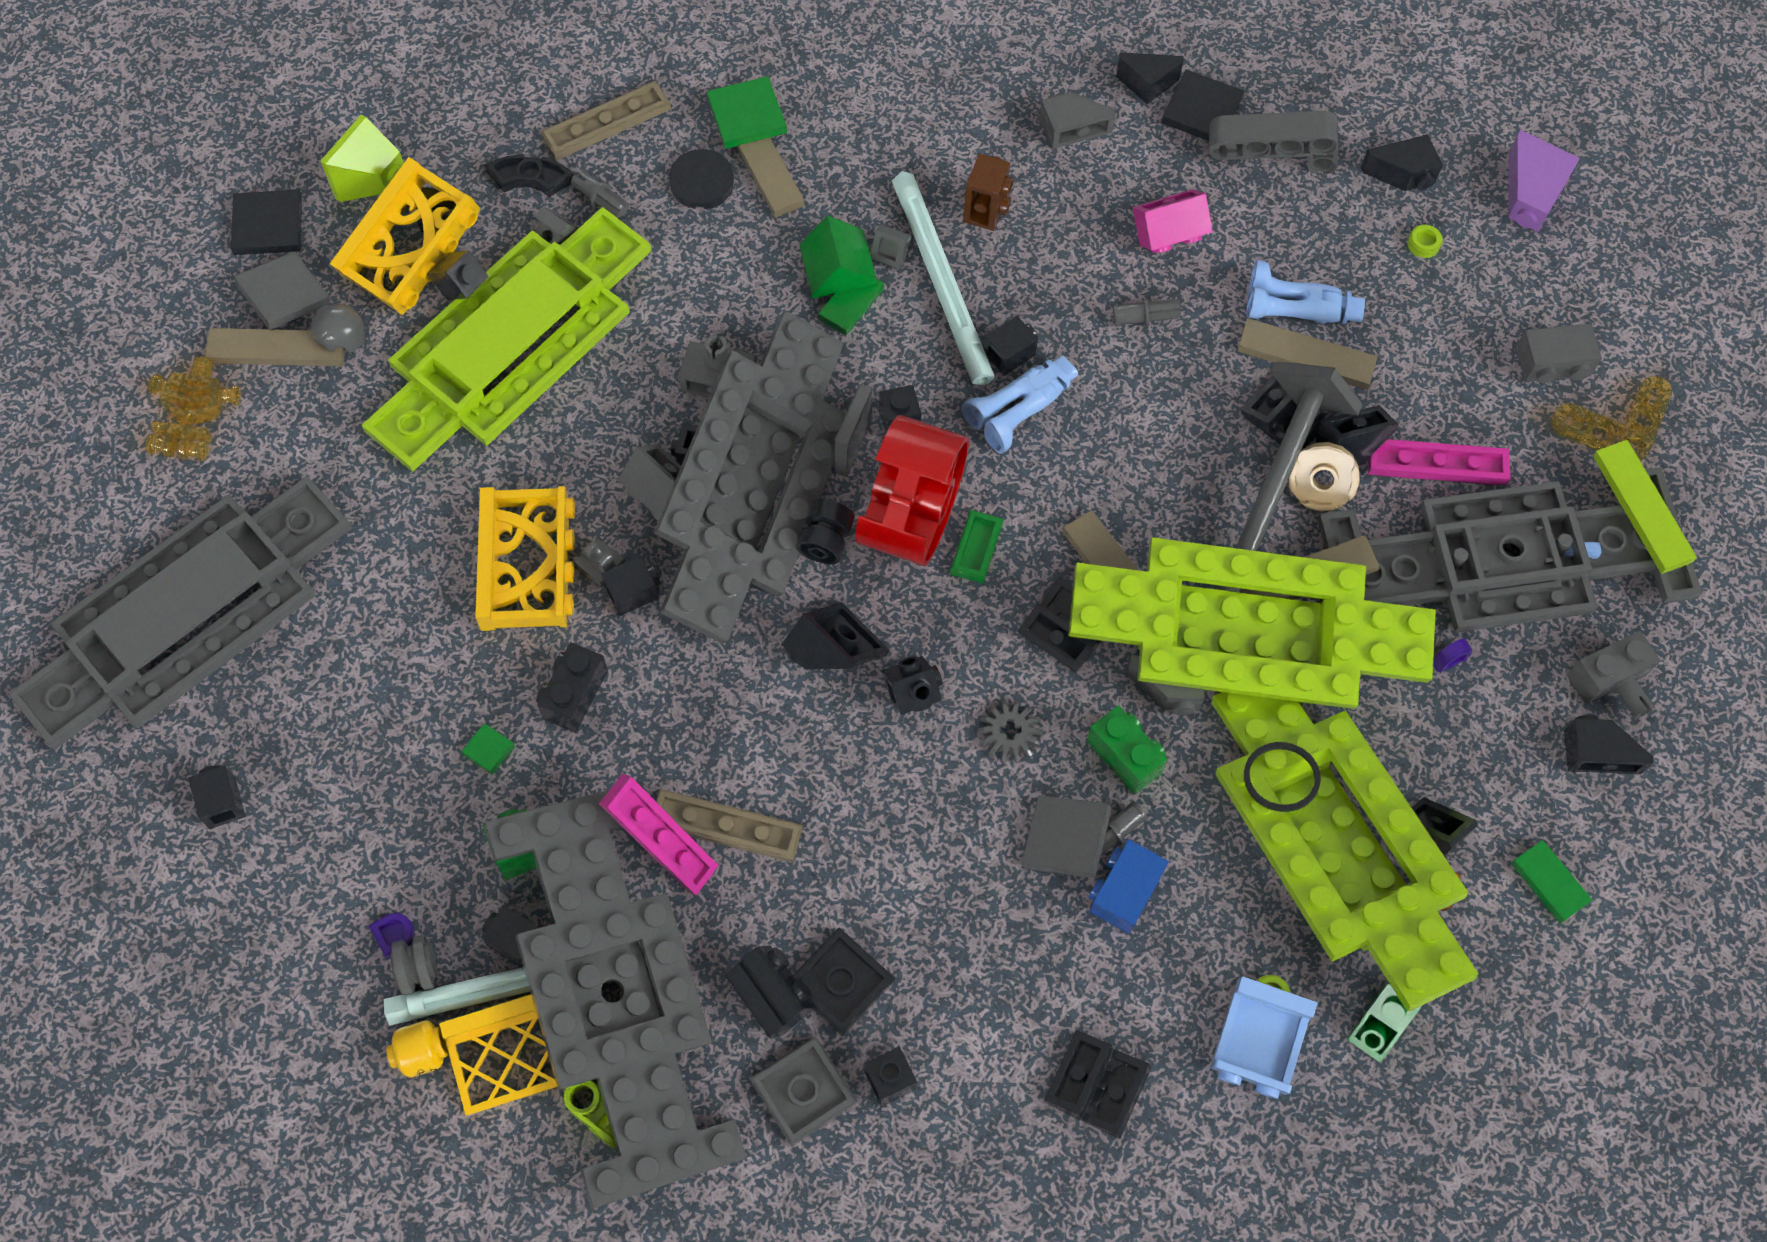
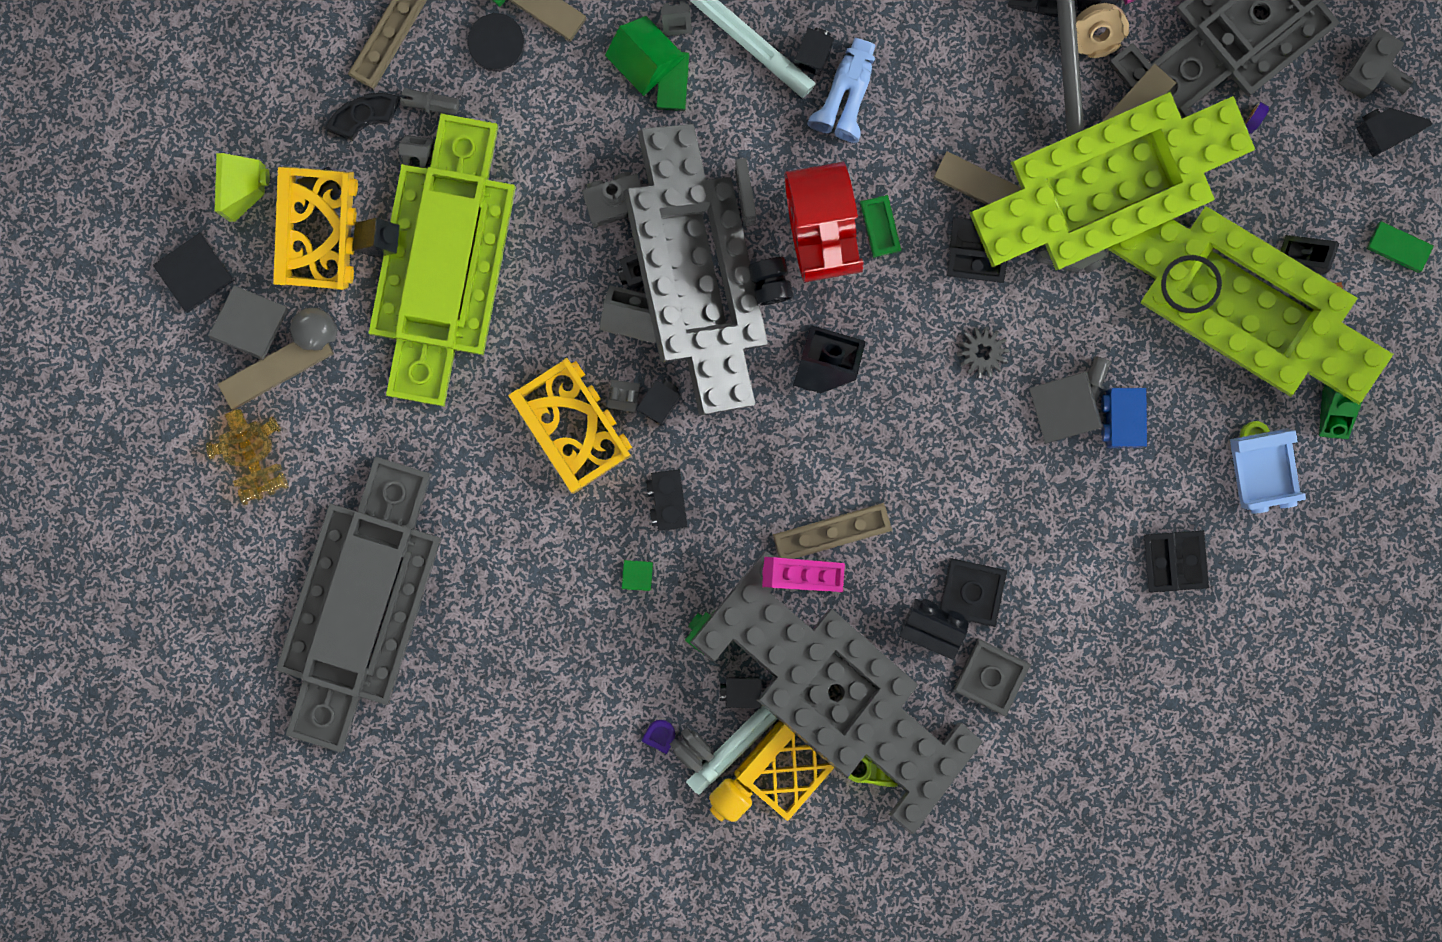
camera: 25 degrees left, 20 degrees up
(216, 796) = (481, 718): black brick -> none
(890, 1076) = (1044, 638): black brick -> none
(898, 402) = (767, 155): black brick -> none
(913, 684) = (901, 360): black brick -> none
(1127, 749) = (1073, 321): green brick -> none

